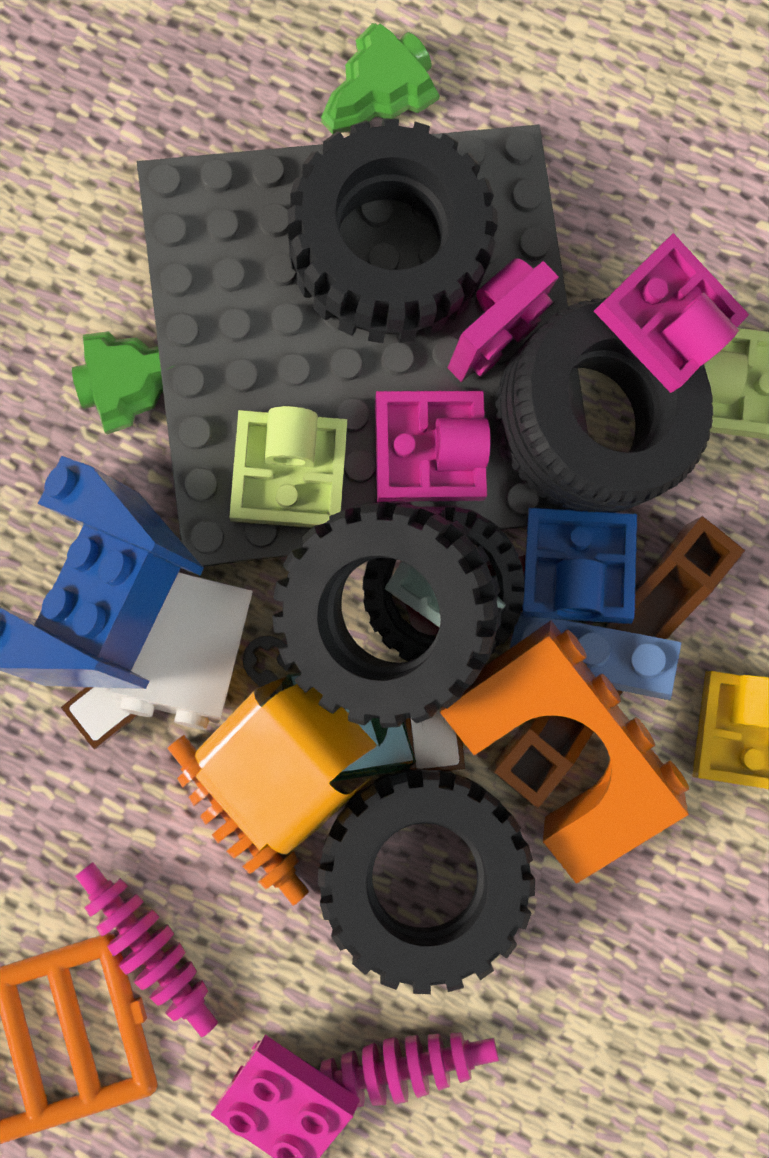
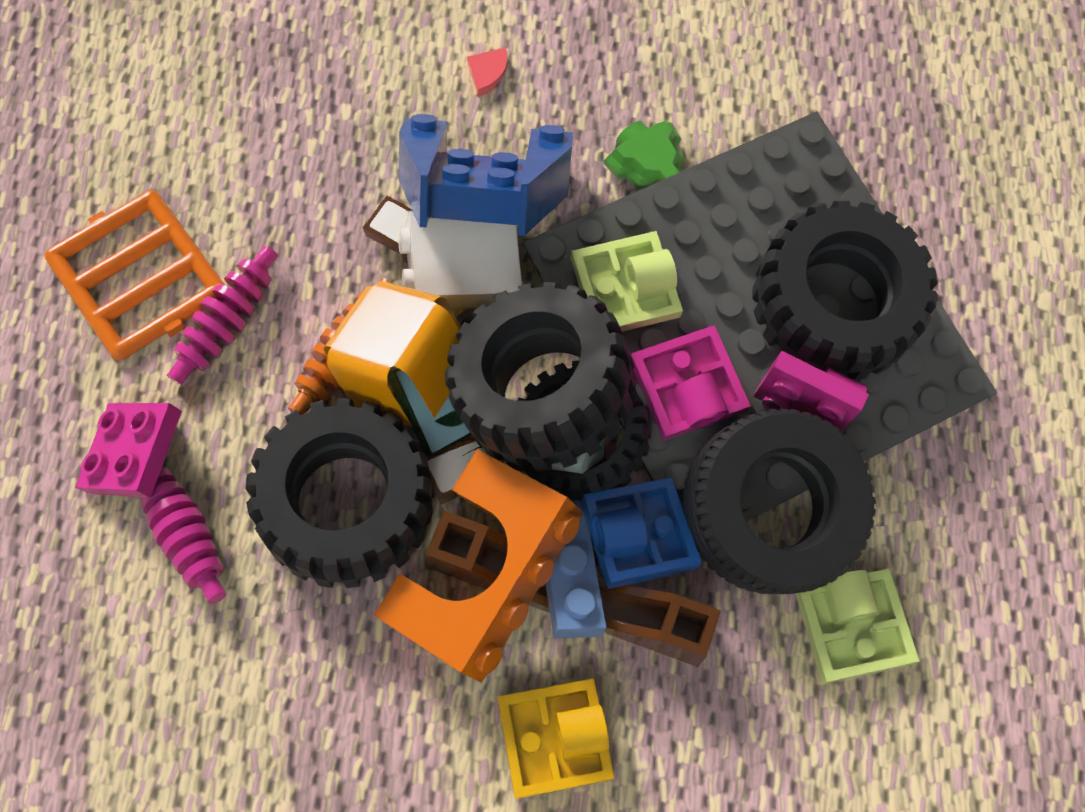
camera: 70 degrees right, 15 degrees down
(381, 80) = (969, 260): bright green rock -> none
(672, 313) = (876, 512): dark pink plate -> none

